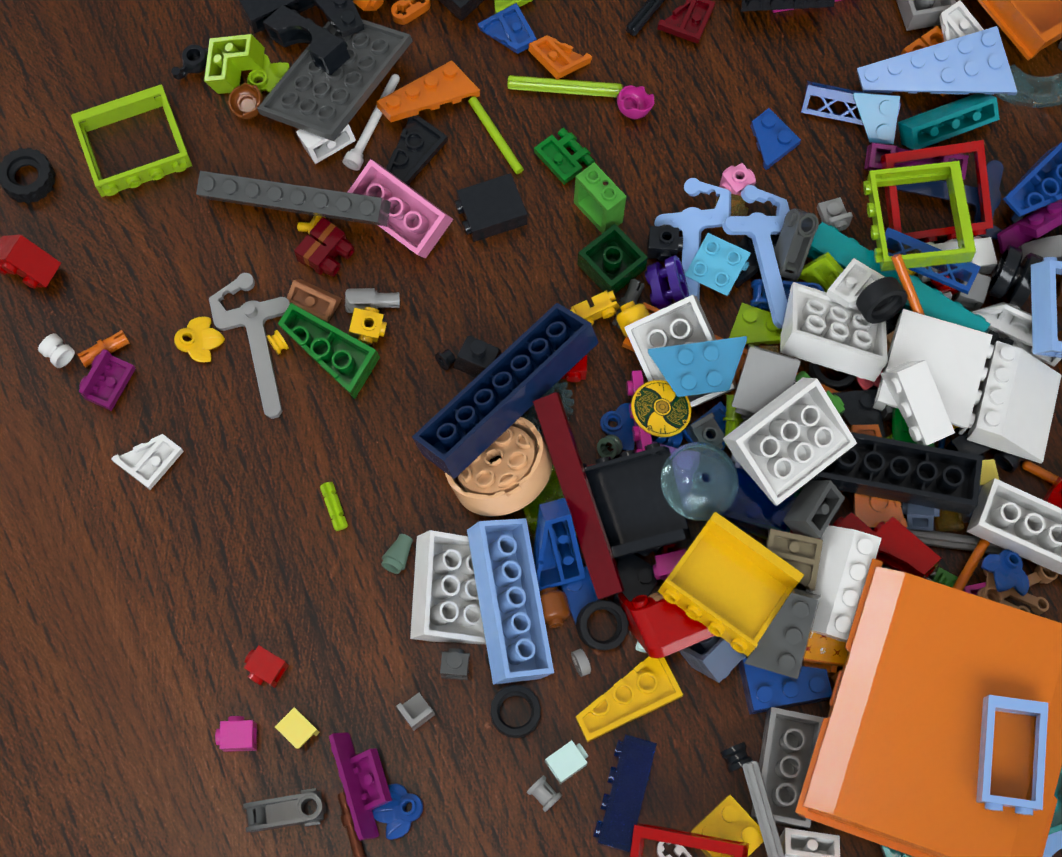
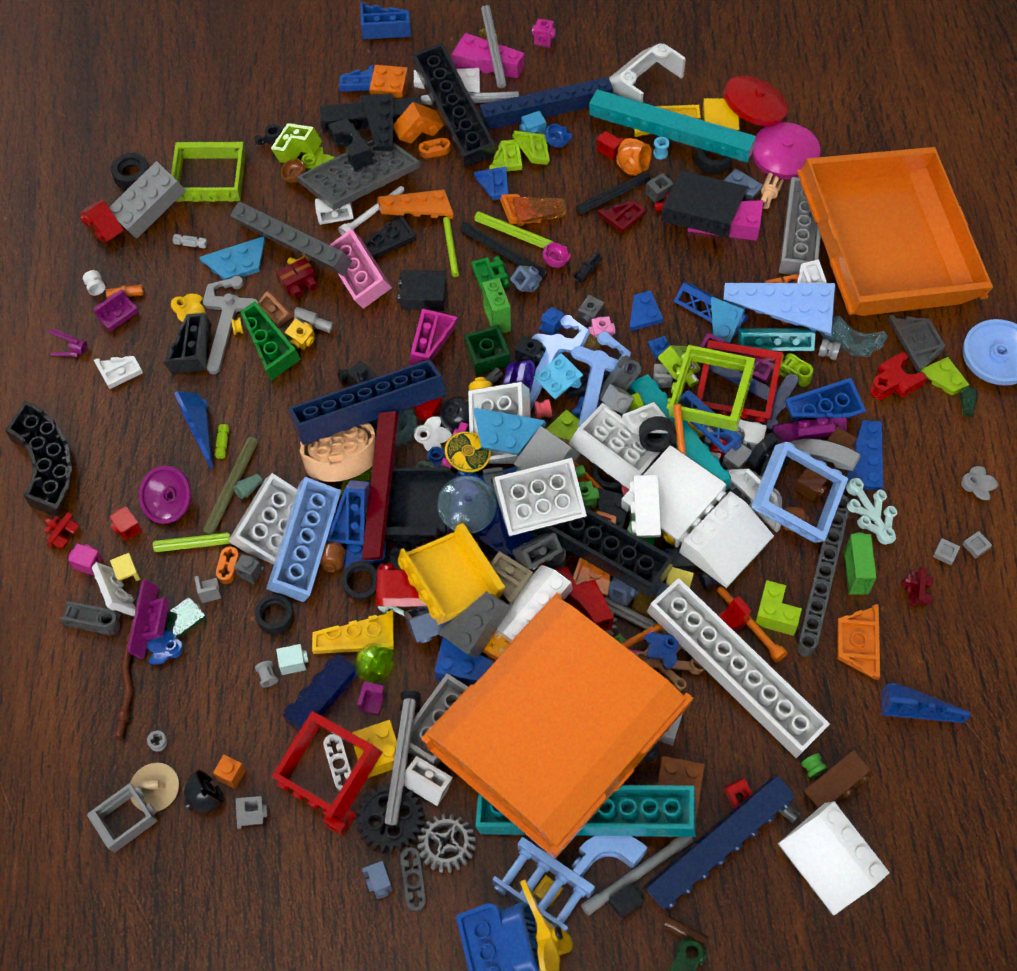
camera: 25 degrees right, 10 degrees down
(73, 210) = (146, 199): none -> light grey brick
(76, 446) = (75, 345): none -> magenta plant
(119, 613) = (49, 456): none -> black brick
(155, 245) = (190, 241): none -> light grey axle
(188, 698) = (56, 537): none -> red hips
(229, 251) = (236, 260): none -> dark azure wing
(232, 392) = (191, 346): none -> black wedge
(284, 484) = (197, 418): none -> blue wedge
(294, 622) = (156, 494): none -> magenta dish
(305, 771) = (112, 590): none -> white wing
(362, 656) = (191, 542): none -> lime axle
(374, 553) = (228, 490): none -> olive axle
(403, 761) = (184, 617): none -> piece
(417, 670) = (223, 564): none -> orange beam
(531, 269) = (431, 335): none -> dark pink wedge
(564, 117) = (500, 248): none -> black axle
(581, 662) = (334, 600): light grey tile -> none
(582, 47) = (533, 208): none -> clear orange wing
(597, 394) = (435, 433): none -> white plate
(603, 307) = (452, 380): yellow hinge -> none
(608, 146) = (526, 278): none -> sand blue brick
(615, 360) = (454, 412): none -> black cylinder
(670, 726) = (374, 663): none -> clear neon green cylinder
(671, 193) = (551, 321): none -> blue brick
(679, 104) = (587, 267): none -> black axle
(687, 771) = (371, 698): none -> magenta panel
(711, 162) = (590, 310): none -> flat silver brick
(716, 312) = (542, 409): none -> coral wheel
(806, 269) = (617, 399): none -> light grey brick
(813, 178) = (658, 346): none -> blue tile
(847, 193) = (672, 360): none -> lime torso
(991, 146) = (797, 367): none -> lime piece
(1013, 110) = (829, 349): none -> light grey wheel
(1017, 706) = (600, 716): light blue window -> none

